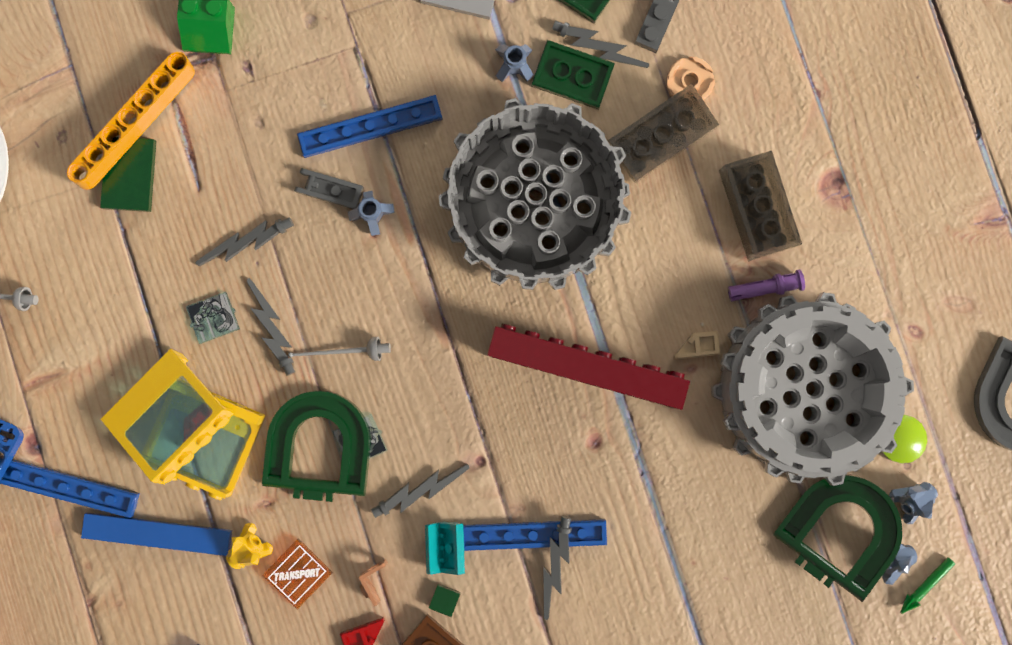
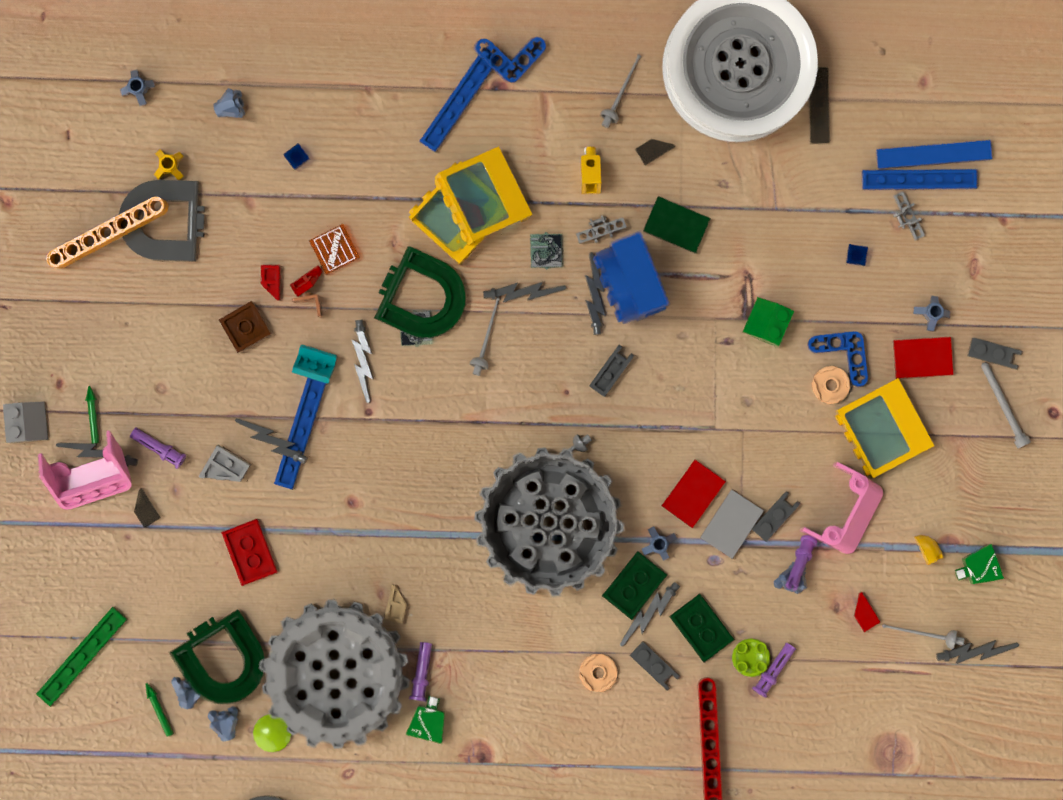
camera: 105 degrees right, 0 degrees up
(48, 233) = (652, 150): none -> clear smoke tile
(96, 296) = (590, 172): none -> yellow torso
(130, 133) = (704, 238): light orange beam -> none
(156, 534) = (400, 156): blue tile -> none
(157, 257) = (605, 225): none -> light grey piece
(201, 196) = (630, 279): none -> blue piece
(247, 548) = (366, 219): yellow rock -> none
(347, 594) = (306, 281): none -> red tile
(369, 126) = (649, 418): blue tile -> none
(371, 212) = (582, 396): sand blue rock -> none
(430, 196) = (578, 443): none -> light grey sword
(440, 43) = (693, 493): none -> red tile
(444, 600) = (276, 350): dark green tile -> none
(589, 368) = (408, 515): dark red brick -> none
(606, 612) = (224, 466): none -> light grey wing
(664, 132) = (562, 634): clear smoke brick -> none
(699, 544) = (249, 552): none -> red tile
(760, 206) = (482, 687): clear smoke brick -> none
(824, 258) = (428, 722): none -> green torso

